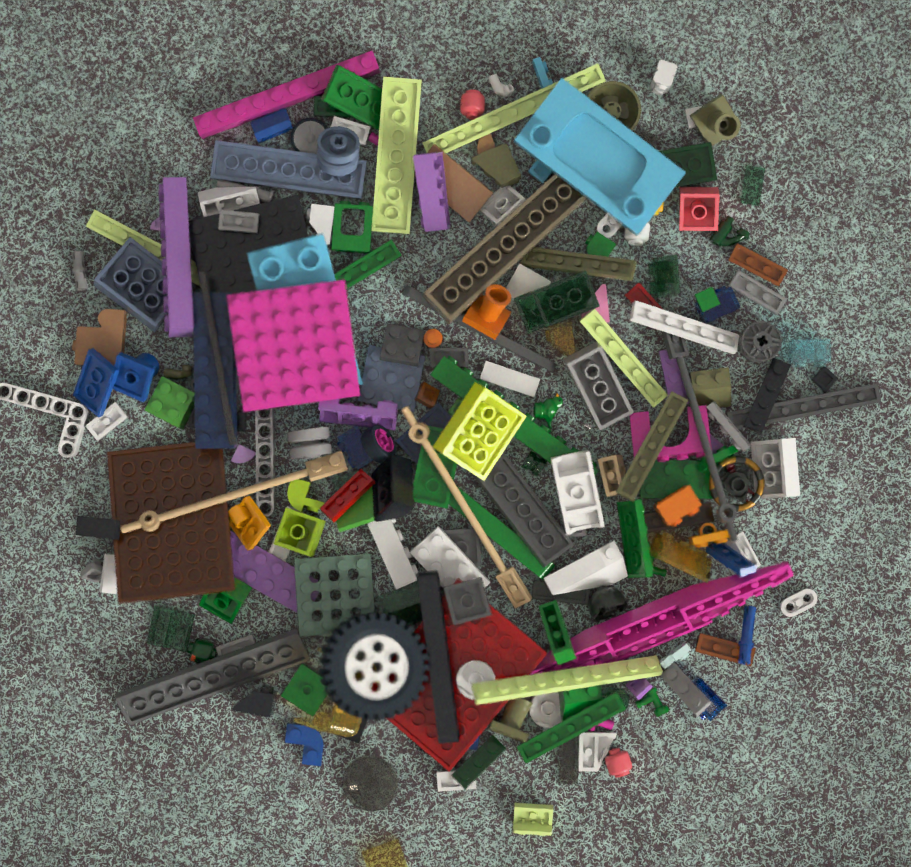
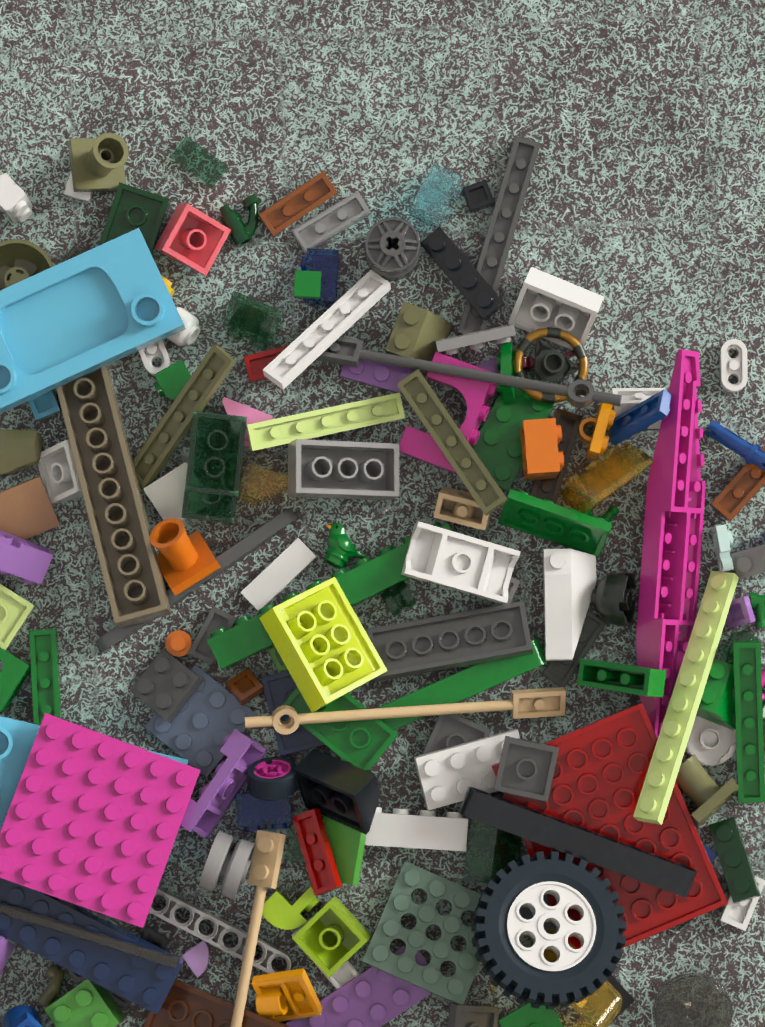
camera: 65 degrees left, 5 degrees down
(473, 672) = (621, 803): white tile -> none

